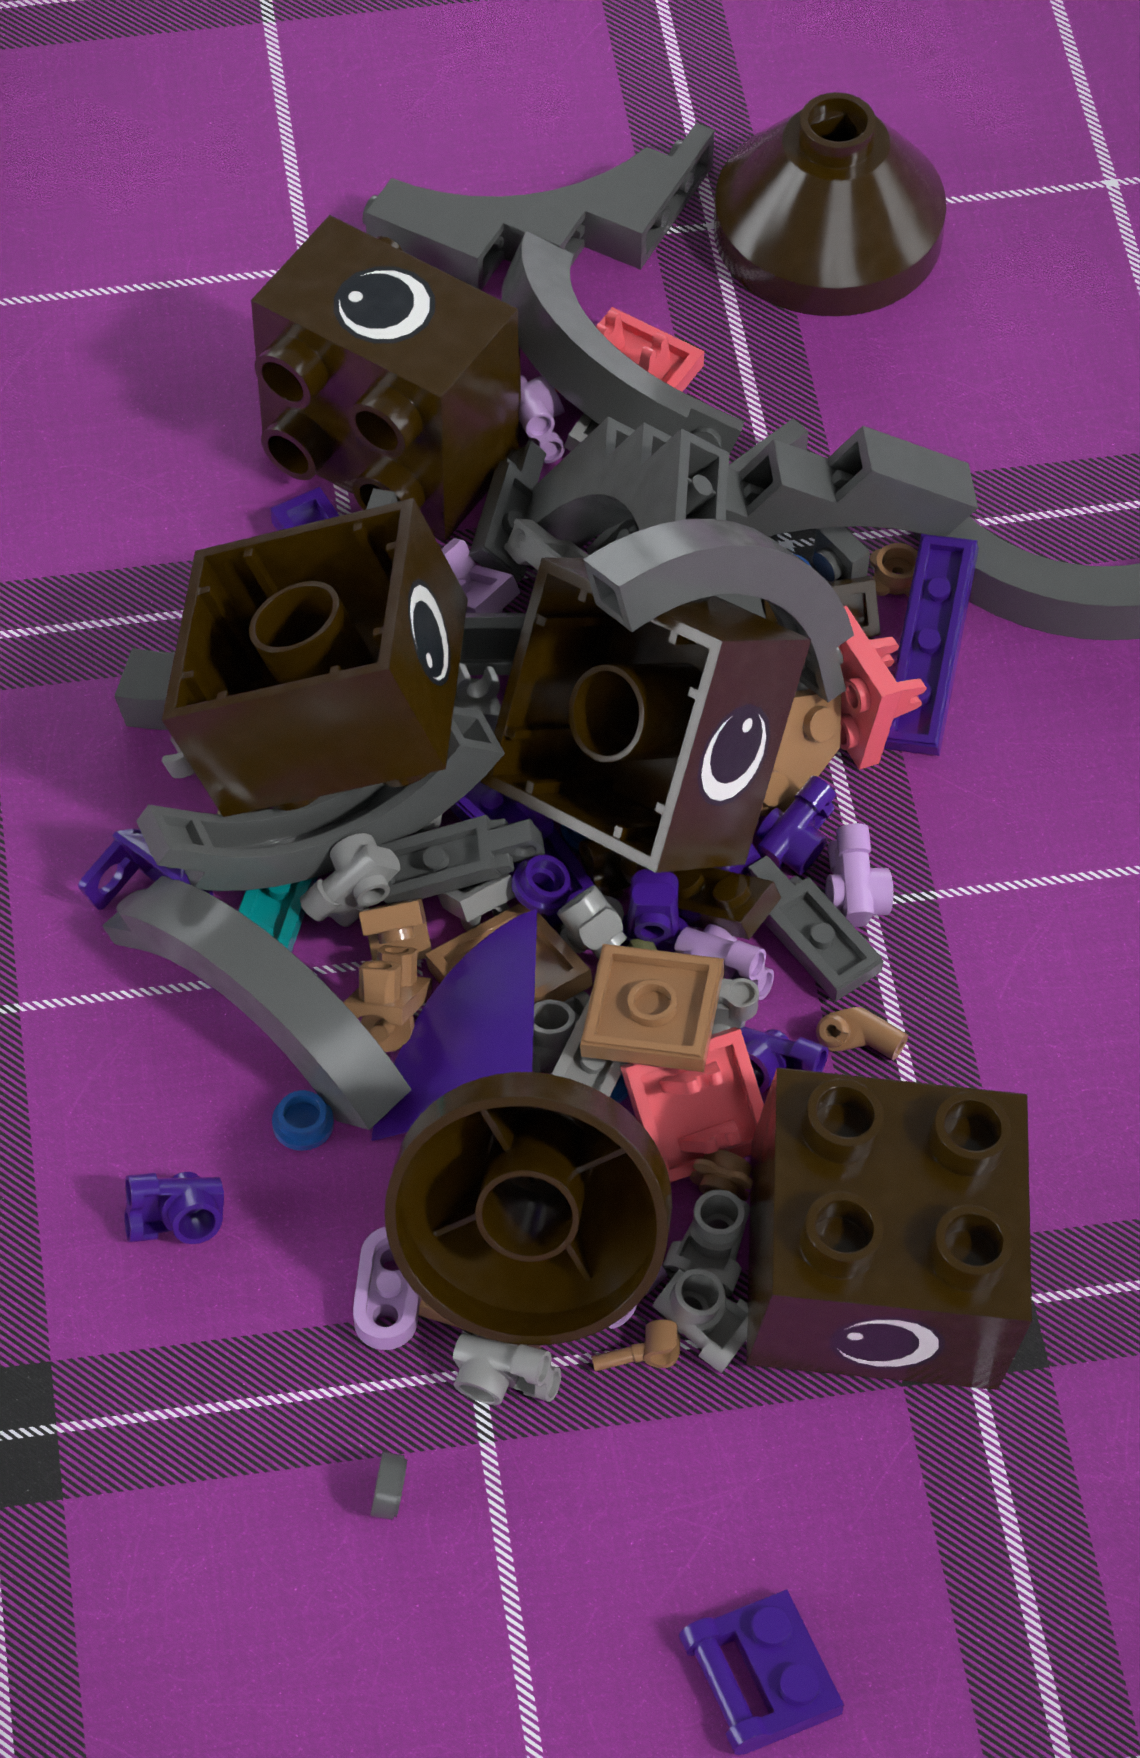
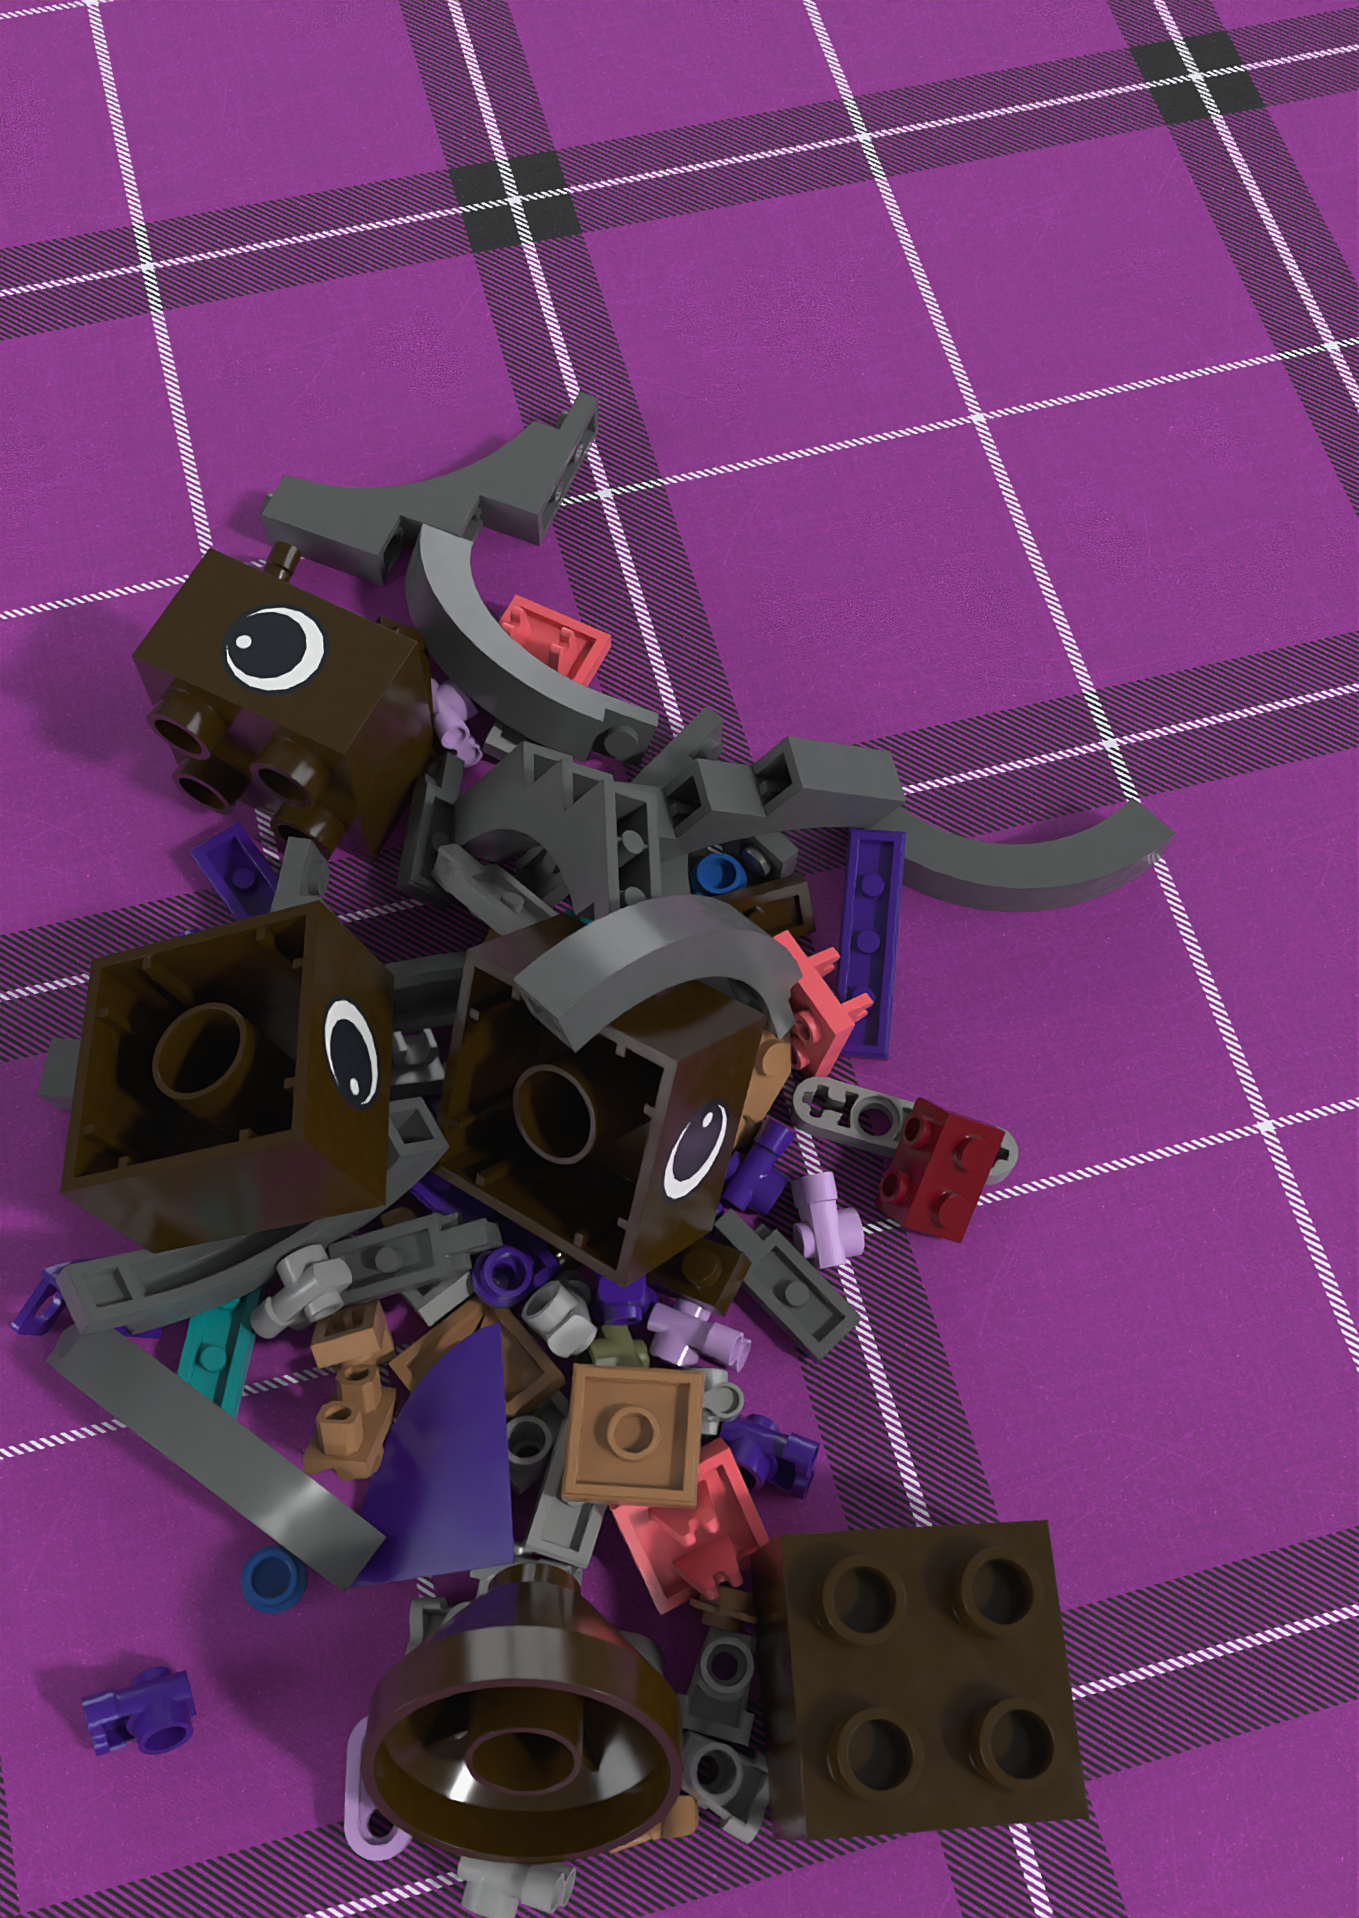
camera: 10 degrees left, 10 degrees up
(485, 588) = (396, 920): lavender bracket -> none
(829, 211) = (716, 474): dark brown cone -> none
(860, 1028) = (843, 1395): medium nougat arm -> none
(890, 560) = (823, 844): medium nougat plate -> none
(942, 821) = (864, 1099): none -> light grey beam
(974, 840) = (938, 1170): none -> dark red bracket

